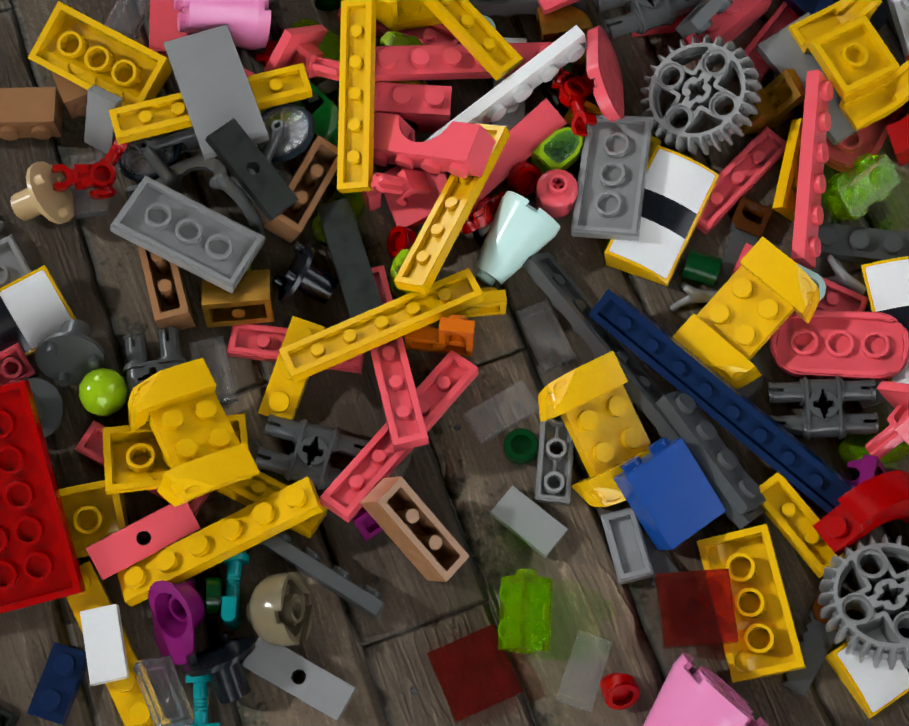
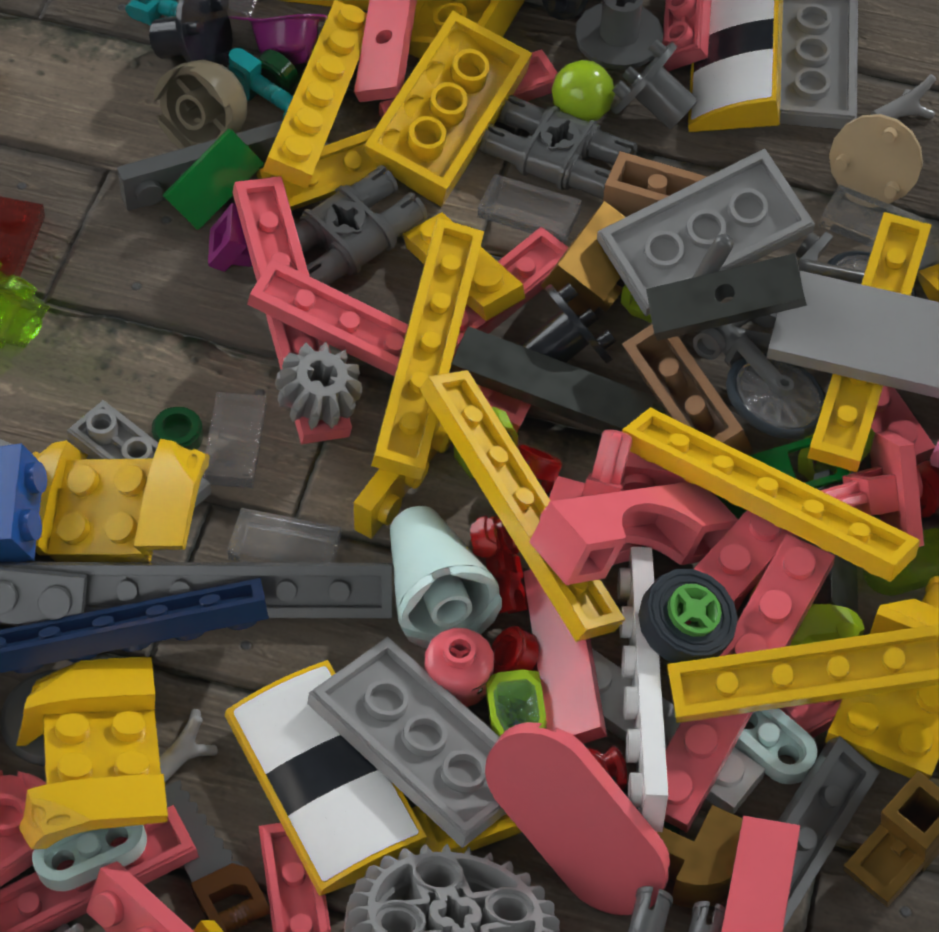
camera: 125 degrees right, 15 degrees down
(98, 175) = (871, 199): red piece -> none
(190, 432) = (451, 110): yellow piece -> none
(320, 688) = (113, 95): light grey tile -> none
(338, 554) = (212, 179): none -> green tile
(414, 529) = (167, 239): medium nougat brick -> none
(450, 369) = (318, 385): none -> light grey gear
(454, 334) = (357, 421): orange plate -> none
(462, 85) = (684, 597): none -> black wheel
(528, 521) = (86, 382): light grey tile -> none
(701, 268) = (213, 773): dark green beam -> none

